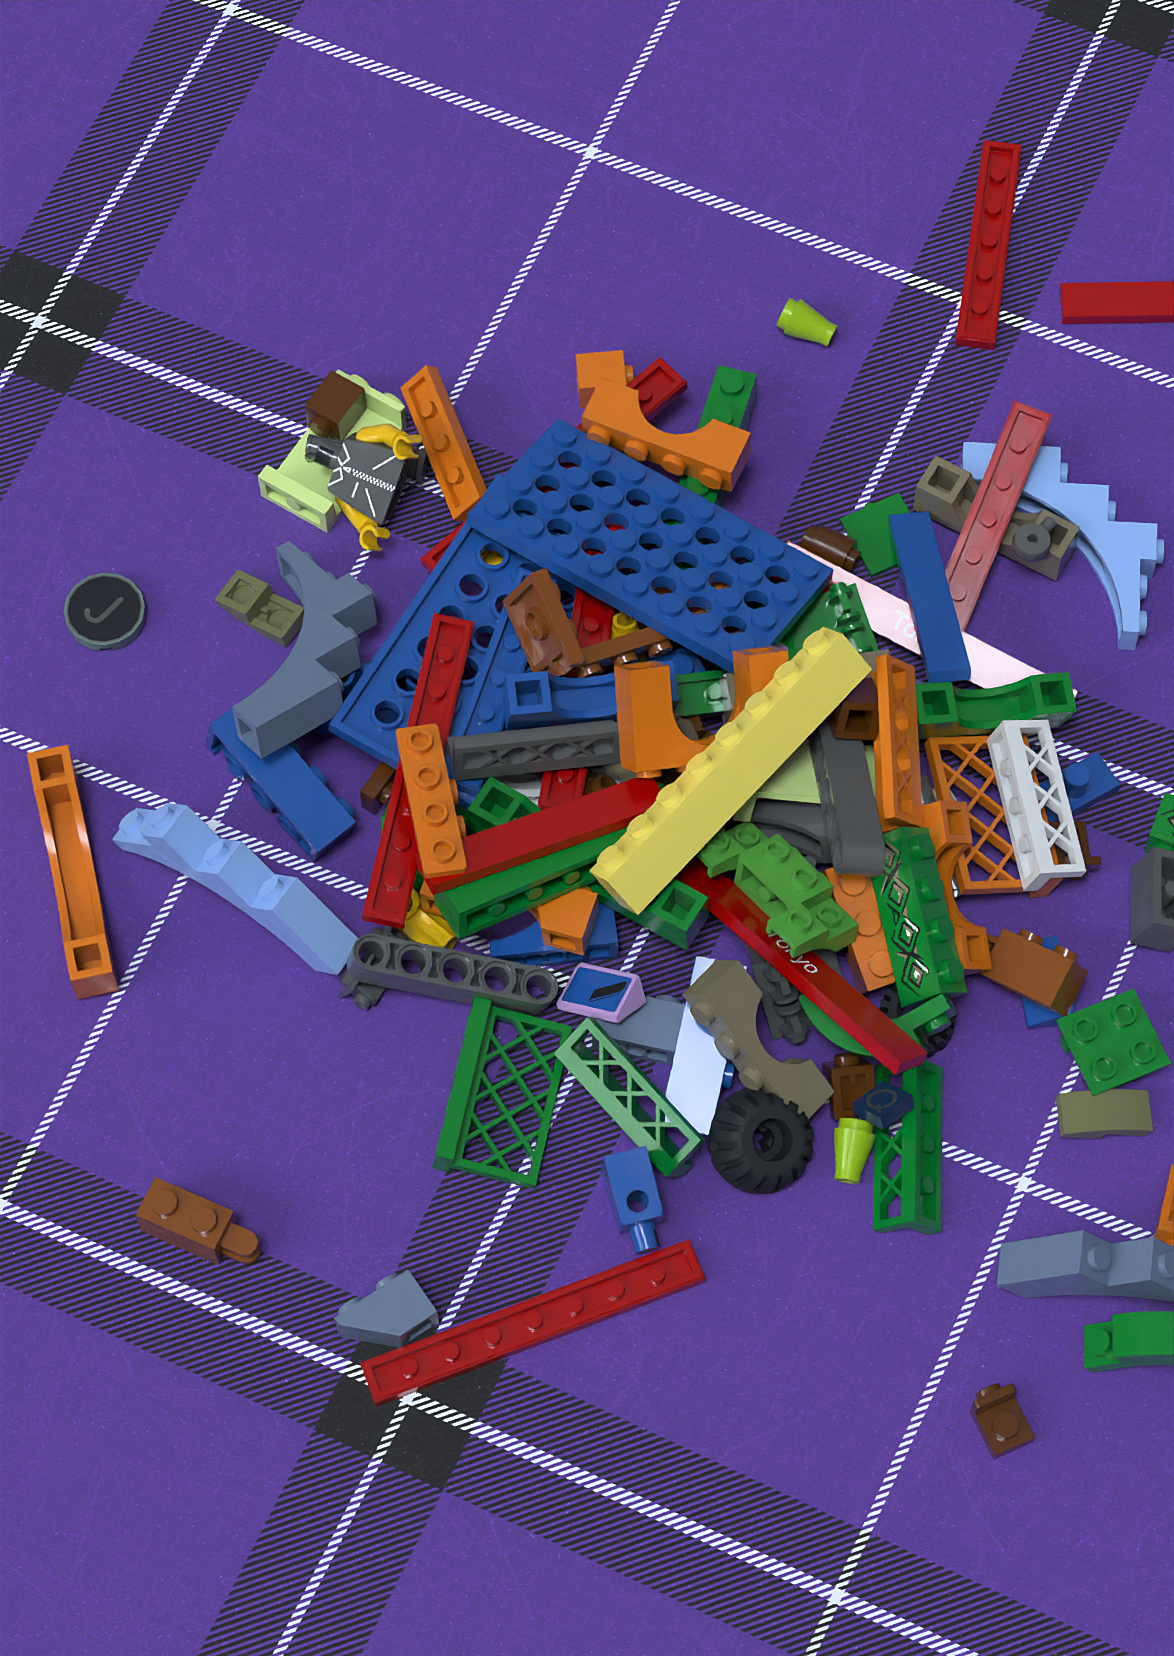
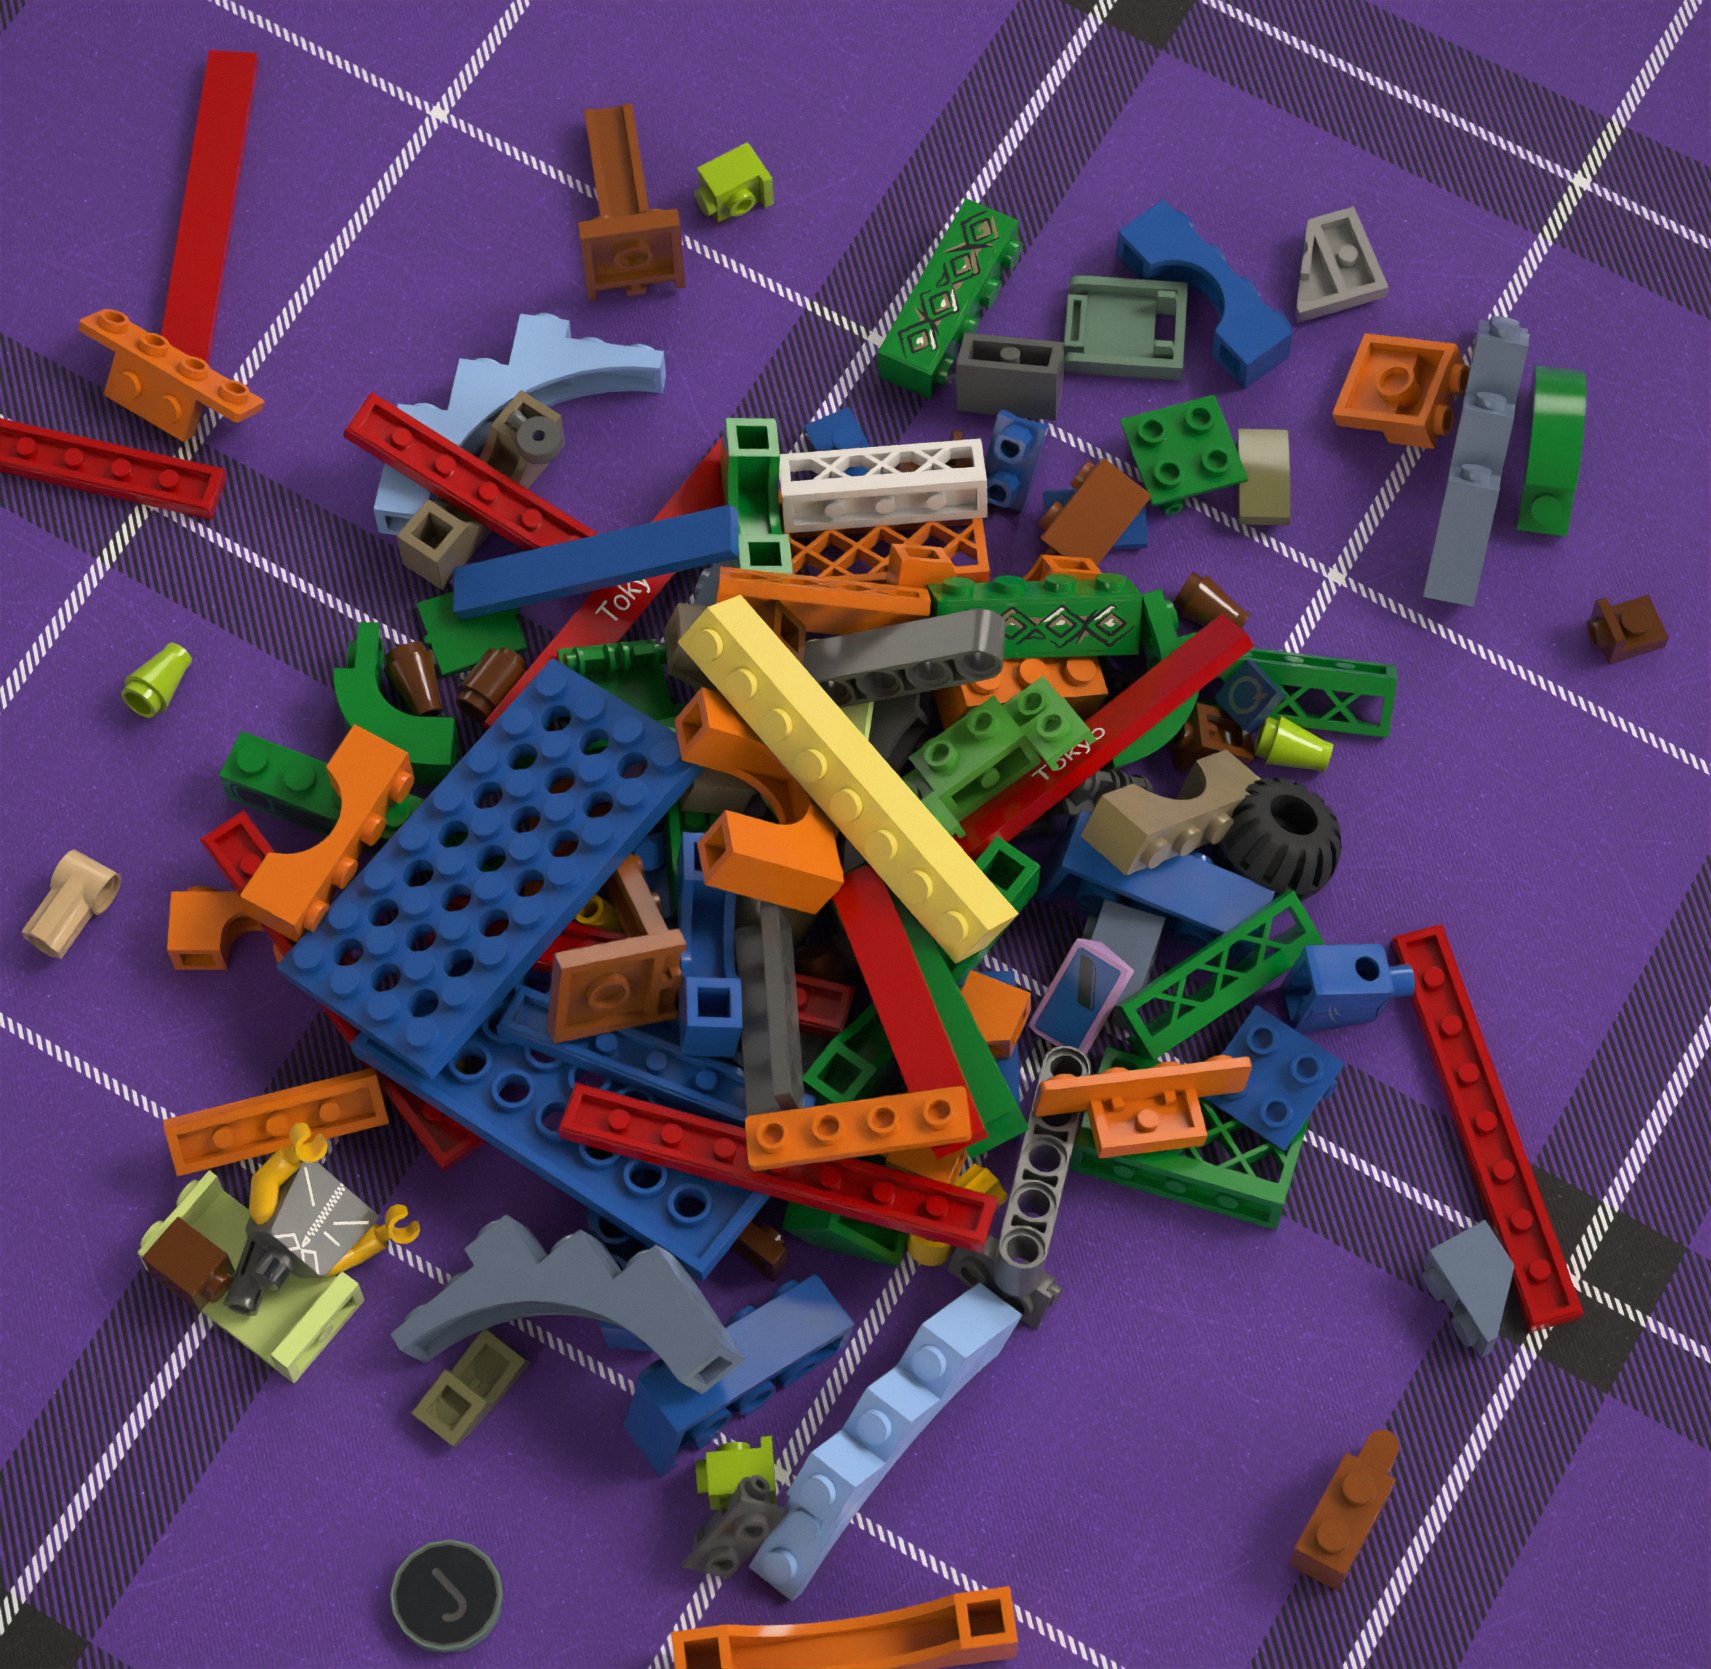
camera: 85 degrees left, 0 degrees up
(151, 786) = (735, 1531): none -> dark grey hinge
(203, 790) = (729, 1465): none -> lime brick
(500, 1040) = (1144, 1107): none -> orange bracket
(550, 1146) = (1284, 1081): none -> blue hinge
(623, 297) = (76, 893): none -> tan piece
(791, 468) = (428, 740): none -> green arch
(829, 496) = (414, 678): none -> reddish brown cone
(974, 1076) = (1204, 600): none -> reddish brown cone
(1065, 287) = (163, 381): none -> orange bracket
(1078, 907) = (1013, 460): none -> blue hips

